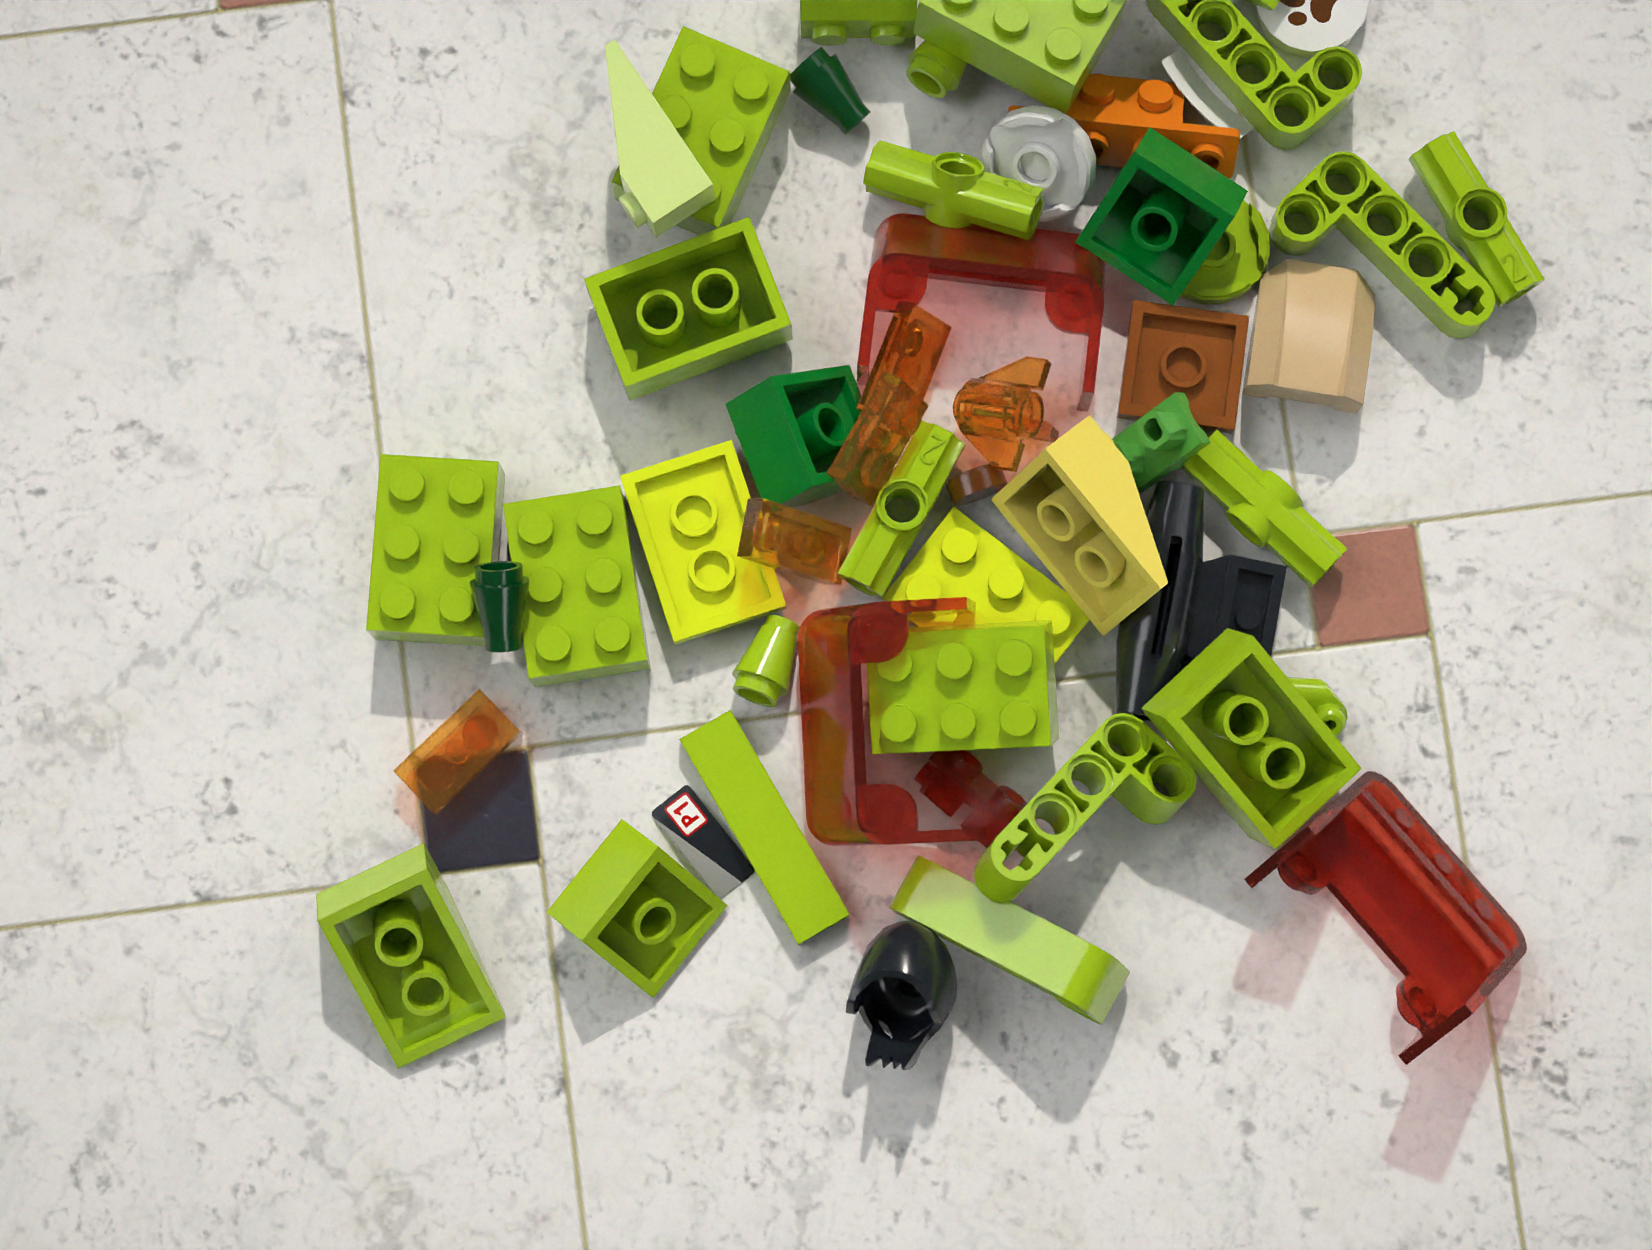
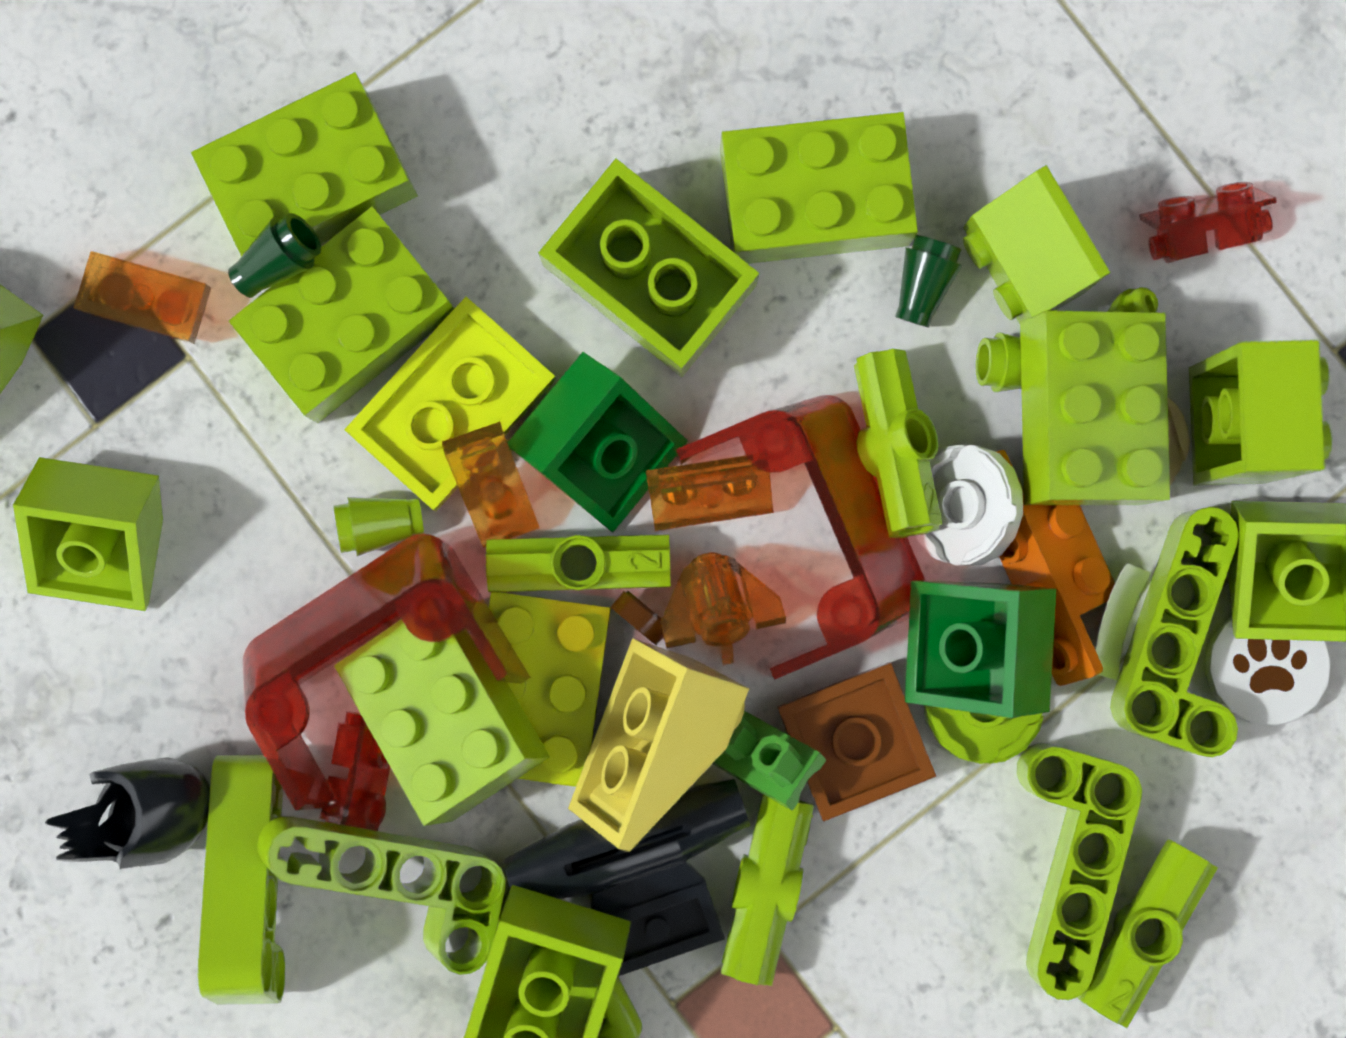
camera: 60 degrees right, 5 degrees up
(655, 164) = (758, 147): yellowish green slope -> none
(703, 841) = (190, 556): sticker -> none
(764, 827) = (229, 604): lime tile -> none
(878, 439) = (624, 506): clear orange plate -> none
(1311, 336) = (953, 841): tan slope -> none

